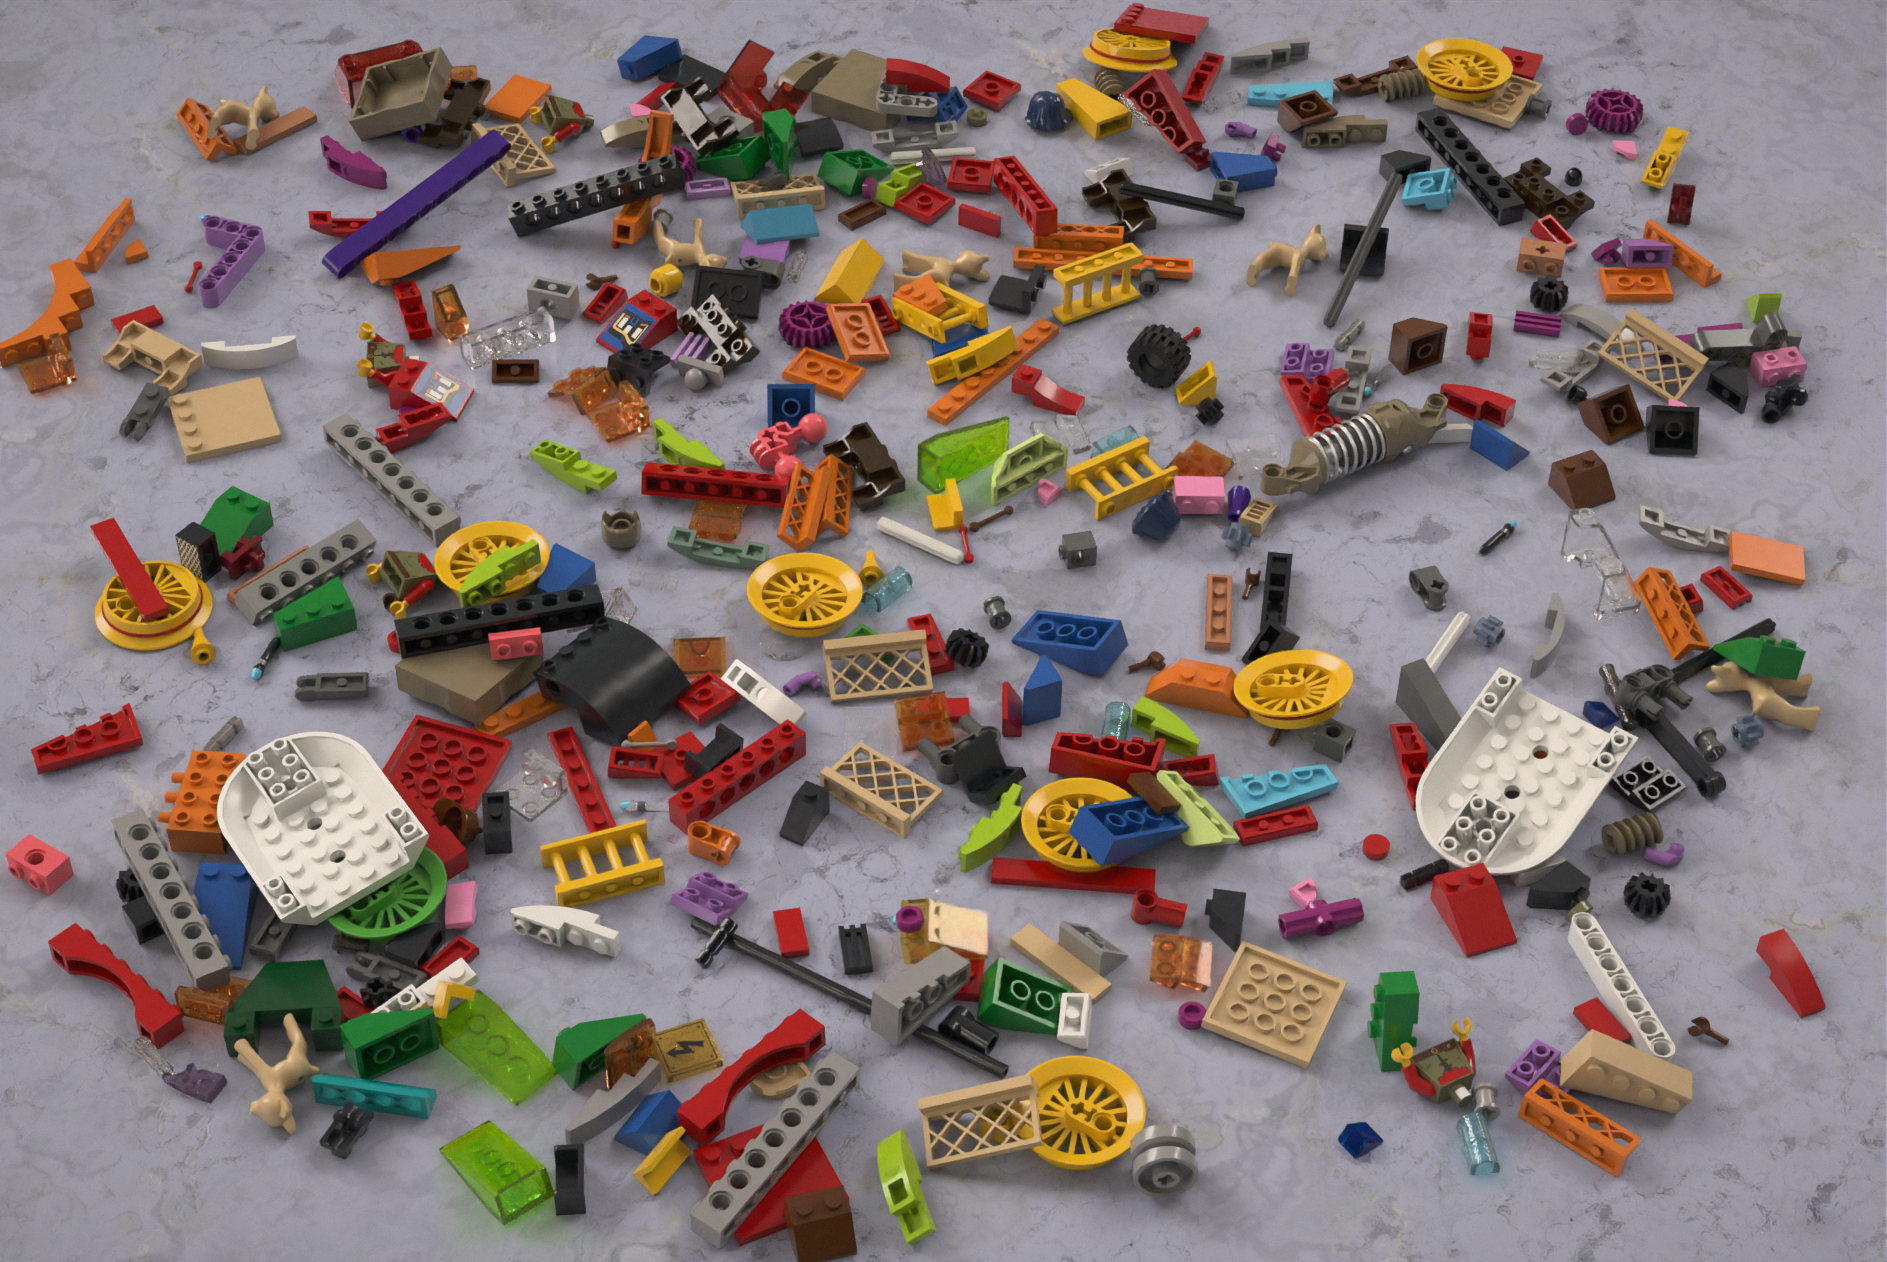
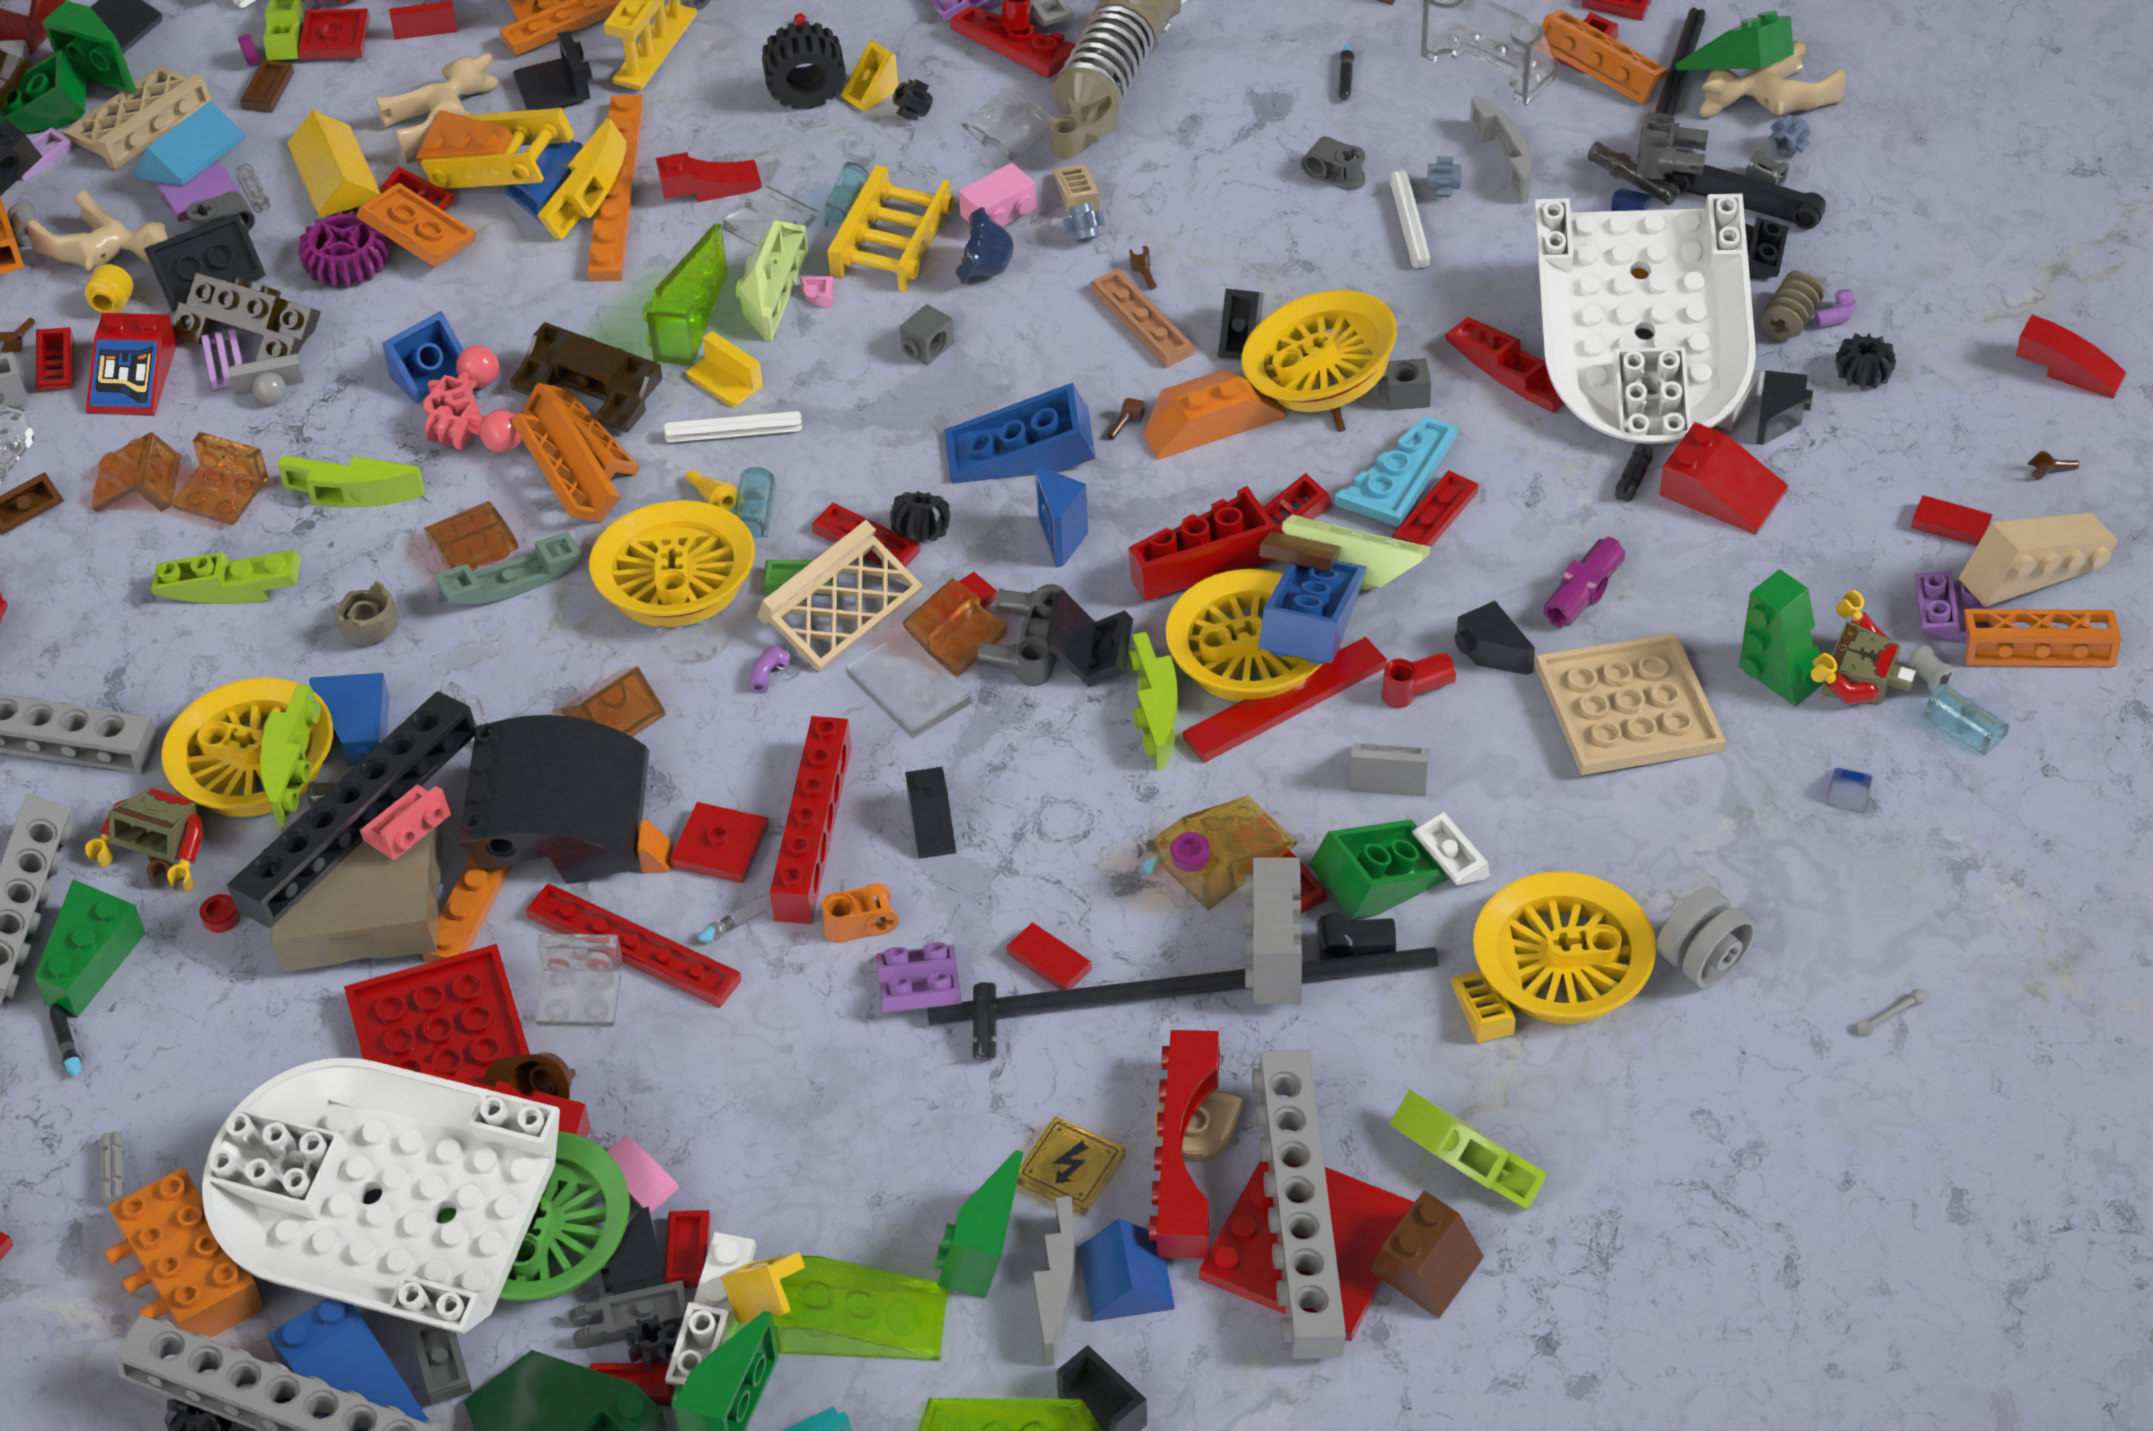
camera: 35 degrees left, 5 degrees up
(332, 686) = (193, 1019): dark grey hinge -> none
(350, 944) = (548, 1310): clear smoke pin -> none
(497, 823) = (584, 1048): black panel -> none
(558, 924) = (777, 1120): white slope -> none
(607, 884) = (775, 1047): yellow fence -> none
(627, 754) = (663, 896): red slope -> none
(630, 1051) = (1031, 1207): clear orange slope -> none
(636, 366) = (181, 411): black bracket -> none
(662, 1161) = (1181, 1303): yellow panel -> none
(670, 744) = (694, 829): light grey hinge -> none
(707, 698) = (678, 751): red plate -> none
(715, 485) = (430, 498): red brick -> none
(715, 753) = (761, 808): black panel -> none
(762, 694) = (742, 707): white slope -> none
(778, 180) = (129, 97): clear smoke pin -> none
(828, 373) = (415, 295): orange tile -> none
(850, 169) = (206, 40): green slope -> none
(854, 932) = (1142, 924): black tile -> none
(868, 801) = (985, 755): tan fence -> none
(968, 557) = (806, 414): red hinge -> none
(972, 1100) = (1458, 1000): tan fence -> none
(974, 526) = (776, 376): reddish brown hinge -> none
(997, 612) = (900, 445): dark grey bush -> none
(1011, 712) = (1032, 560): red slope -> none
(1060, 962) = (1368, 801): tan tile -> none
(1116, 720) = (1159, 503): clear light blue brick -> none
(1164, 724) = (1222, 476): lime slope -> none
(1181, 961) = (1495, 718): clear orange slope -> none
(1191, 1015) = (1559, 769): magenta tile -> none
(1201, 461) = (957, 161): clear orange slope -> none
(1238, 501) = (1046, 185): dark purple cone -> none
(1276, 587) = (1182, 260): black slope -> none
(1304, 892) = (1539, 568): bright pink tile -> none
(1376, 847) = (1558, 473): red tile -> none
(1426, 703) = (1464, 287): dark grey slope -> none
(1583, 906) = (1821, 419): olive tile -> none
(1618, 987) = (1932, 470): white beam -> none

